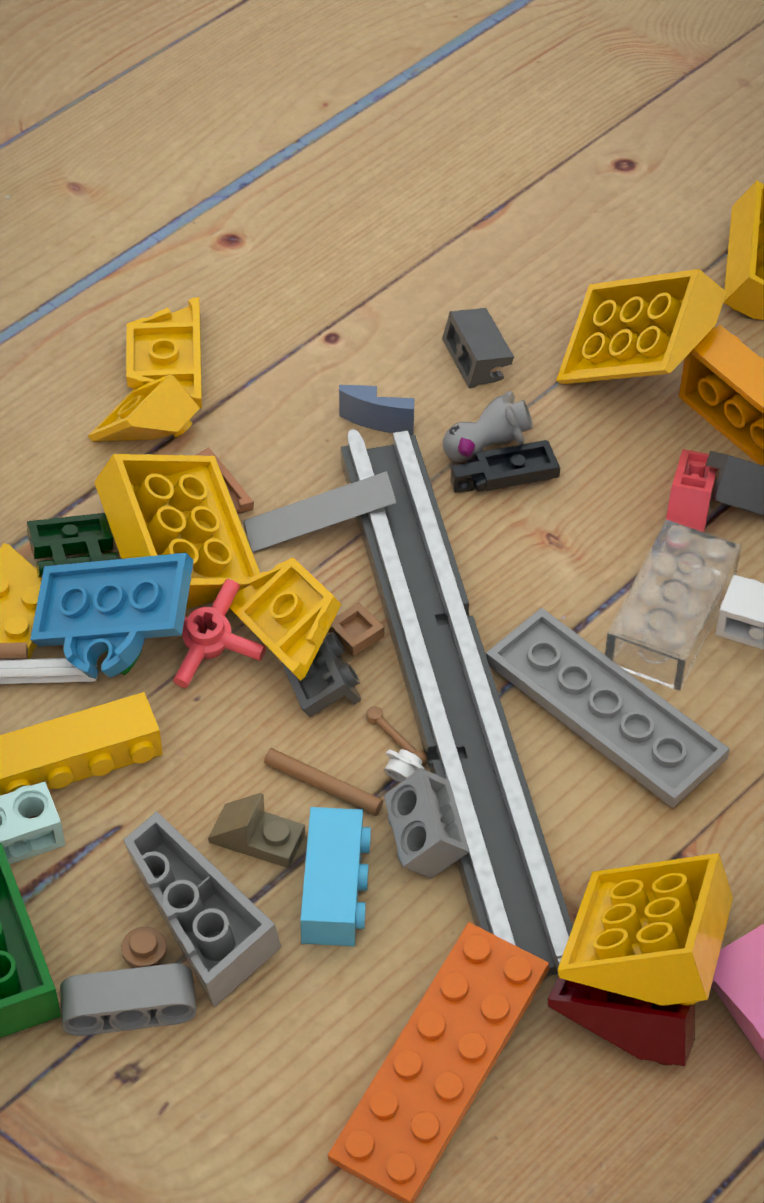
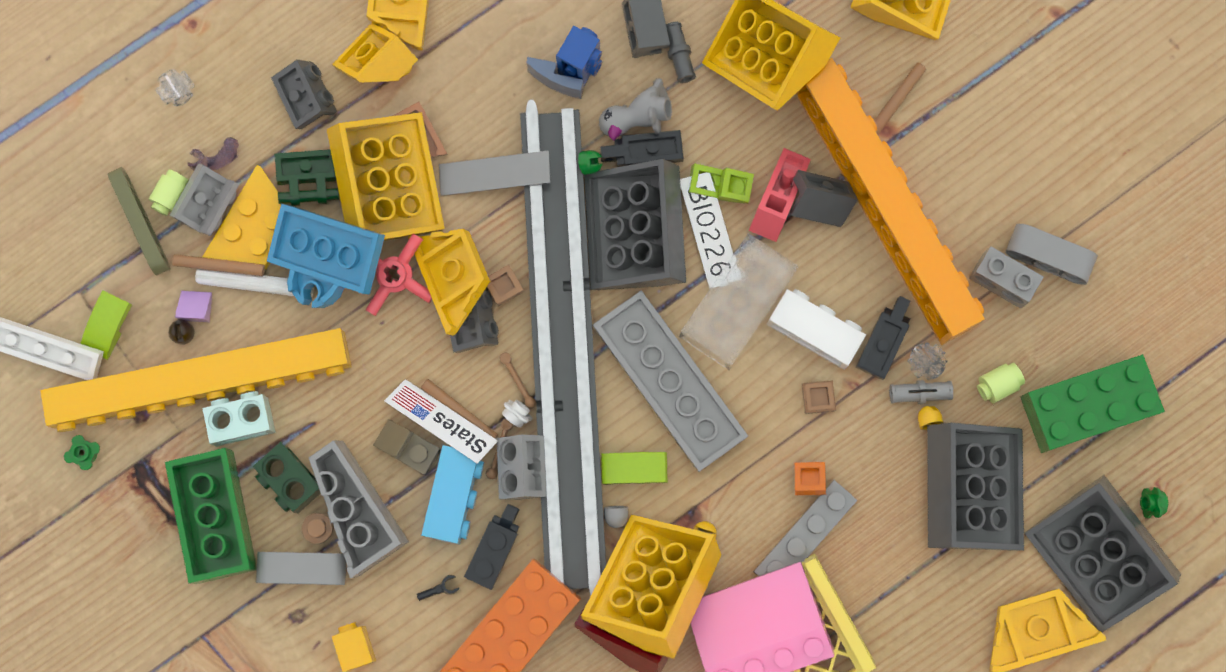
camera: 10 degrees right, 30 degrees up
(53, 462) = (303, 93): none -> dark grey bracket
(100, 881) = (293, 473): none -> dark green brick
(223, 1092) = (353, 647): none -> yellow brick
(302, 787) = (441, 421): none -> white sticker
(344, 1000) = (438, 589): none -> black hand
(383, 848) = (492, 473): none -> medium nougat hinge
(406, 370) = (579, 54): none -> blue brick
(406, 940) = (494, 548): none -> black hinge
(442, 483) = (589, 162): none -> green hinge
(517, 544) = (635, 226): none -> dark grey slope
(528, 372) = (679, 53): none -> dark grey pin
(571, 871) = (616, 515): none -> light grey hinge
(581, 809) = (634, 468): none -> lime slope
(605, 533) = (707, 227): none -> white sticker
(623, 493) = (729, 183): none -> lime slope

